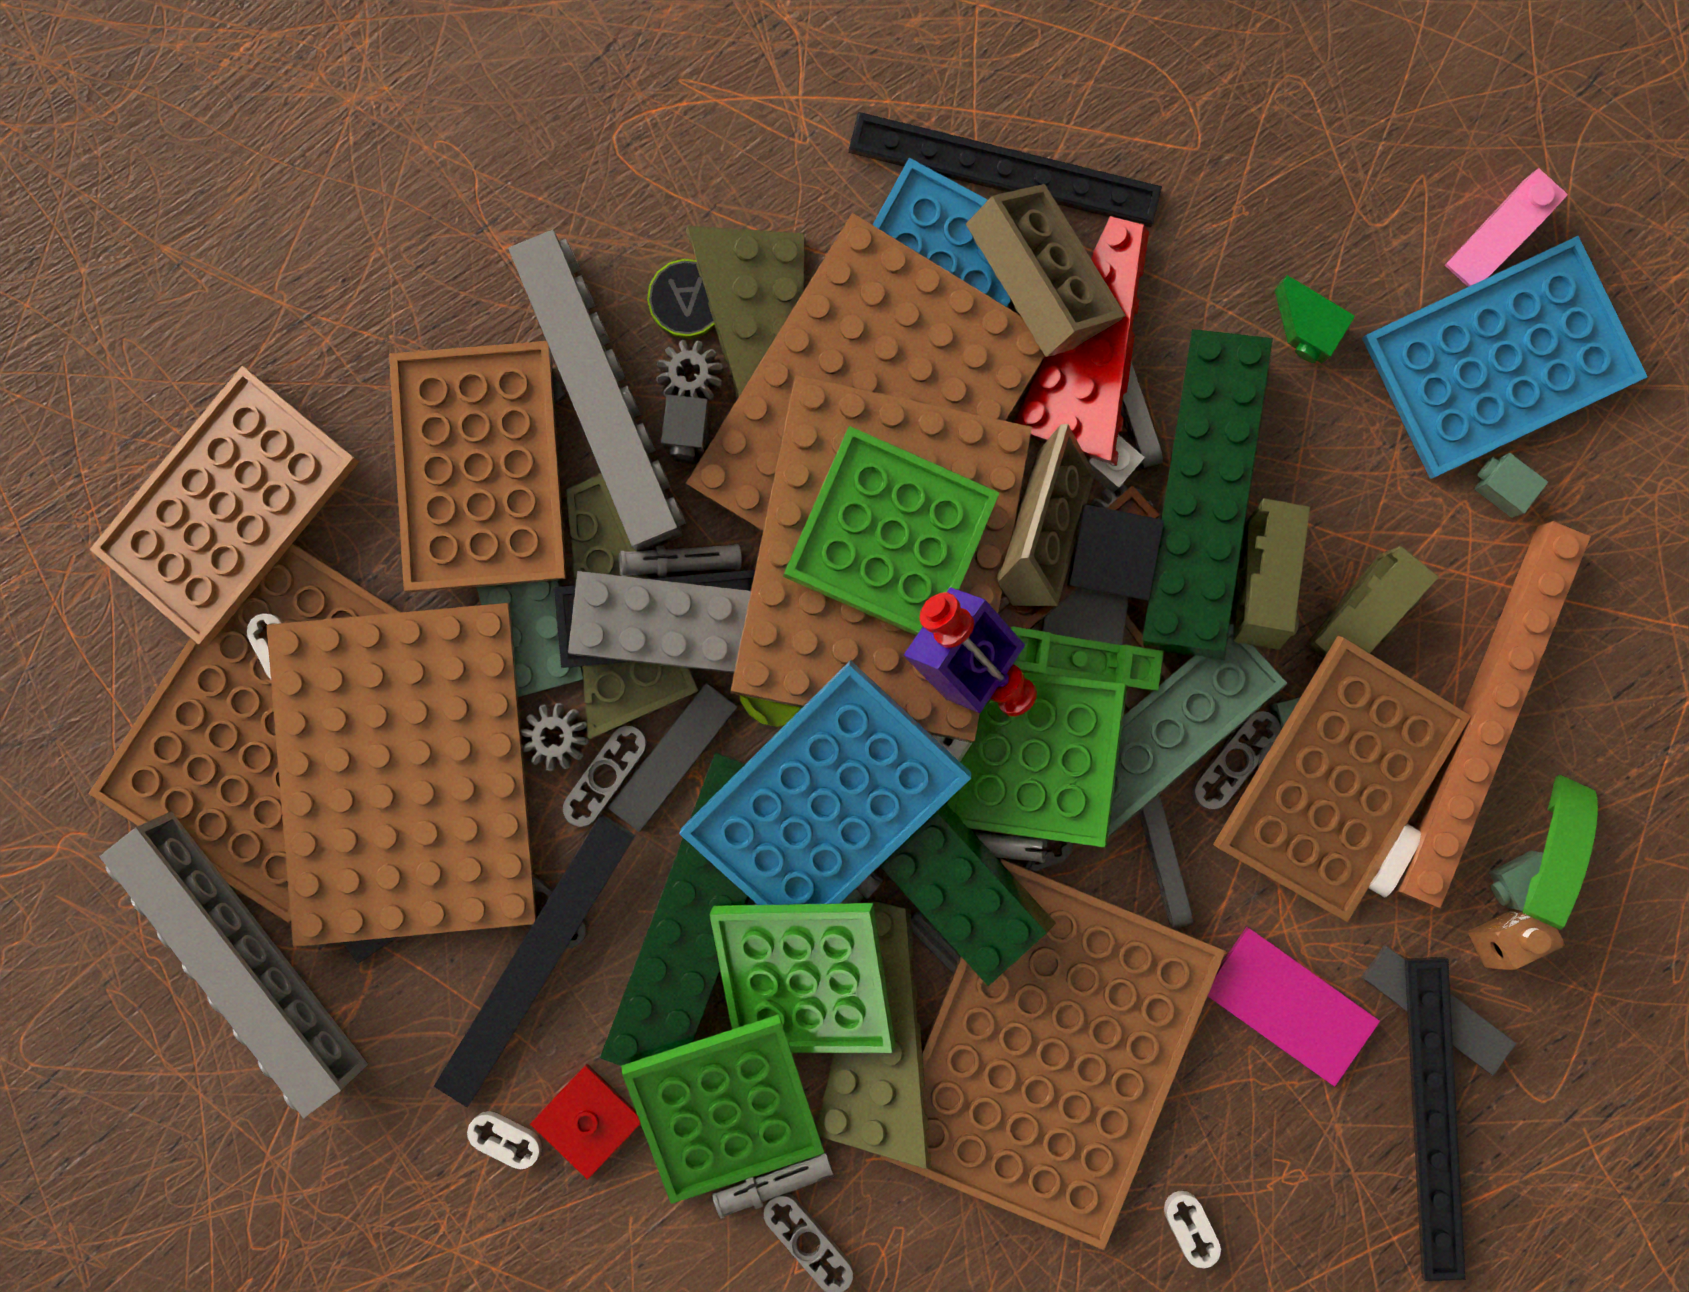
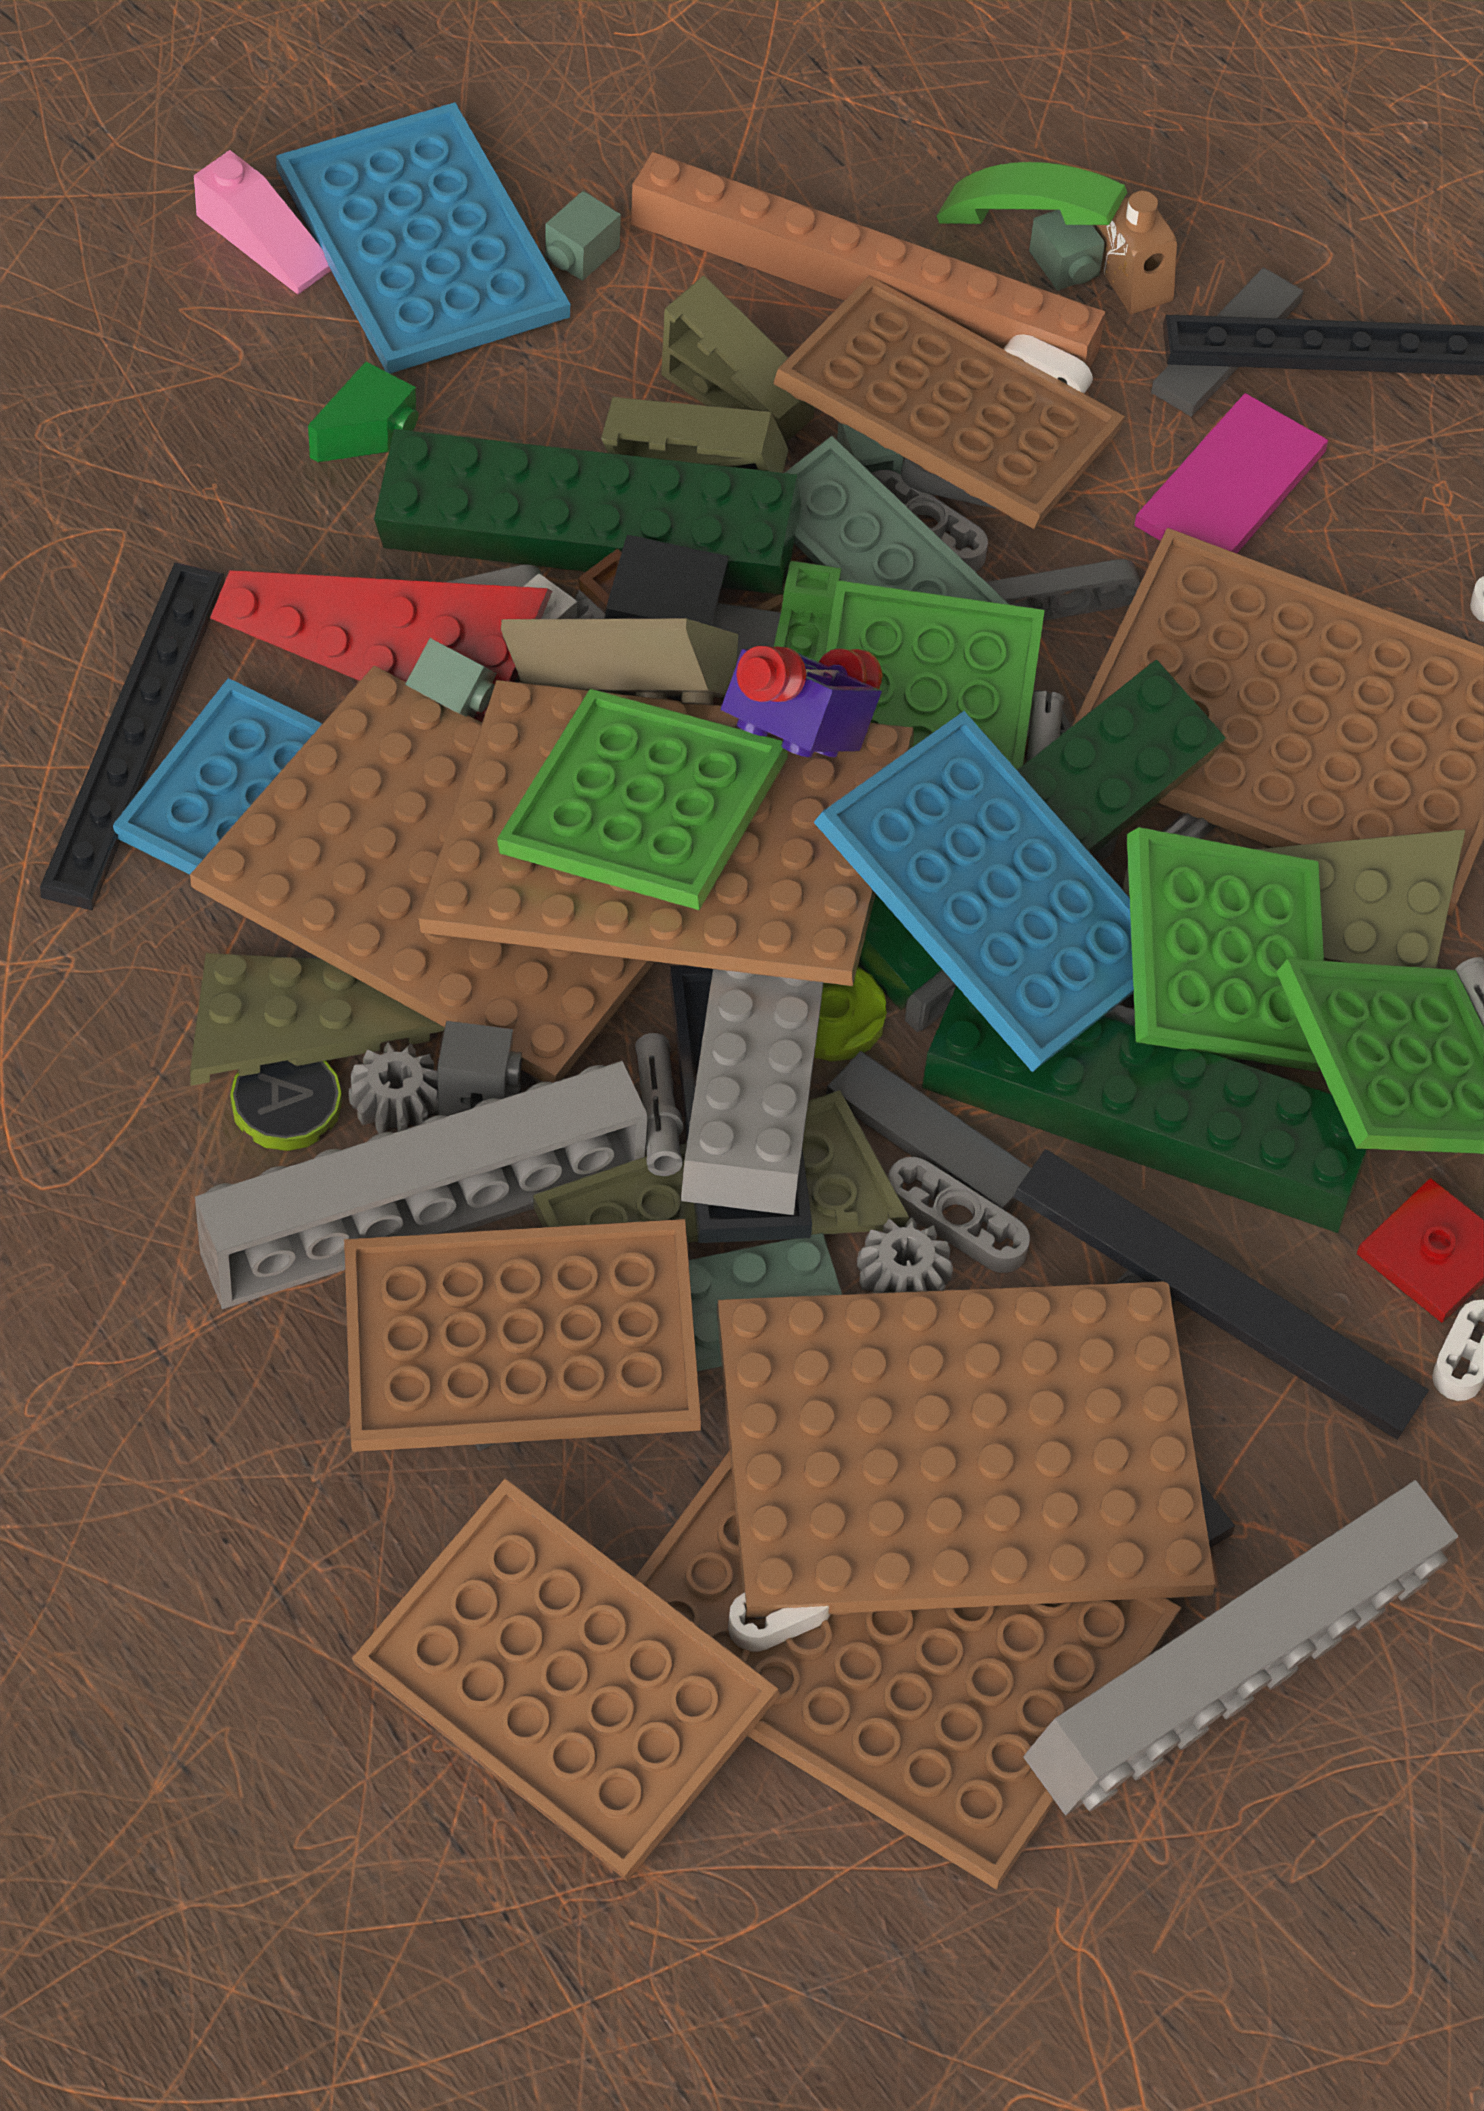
camera: 90 degrees left, 30 degrees down
(1036, 394) = (452, 679): none -> sand green brick
(1044, 268) = (288, 664): dark tan slope -> none

